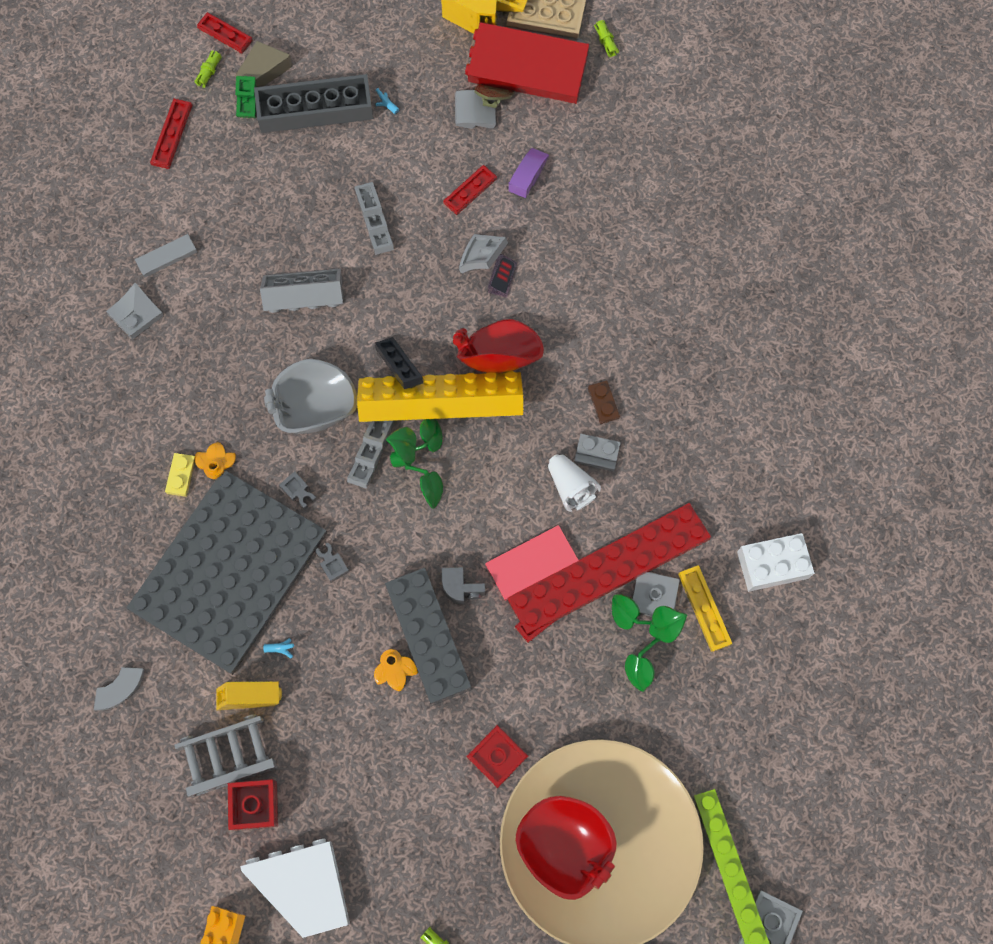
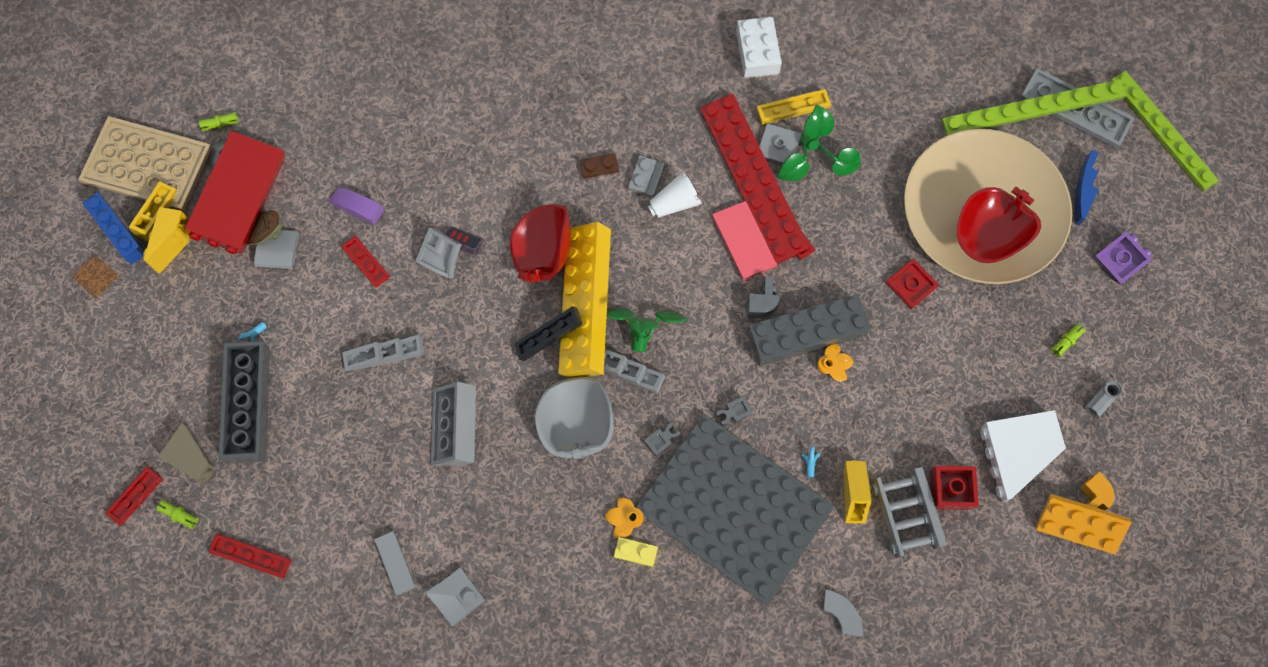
camera: 85 degrees left, 0 degrees up
(245, 96) = (223, 472): green slope -> none

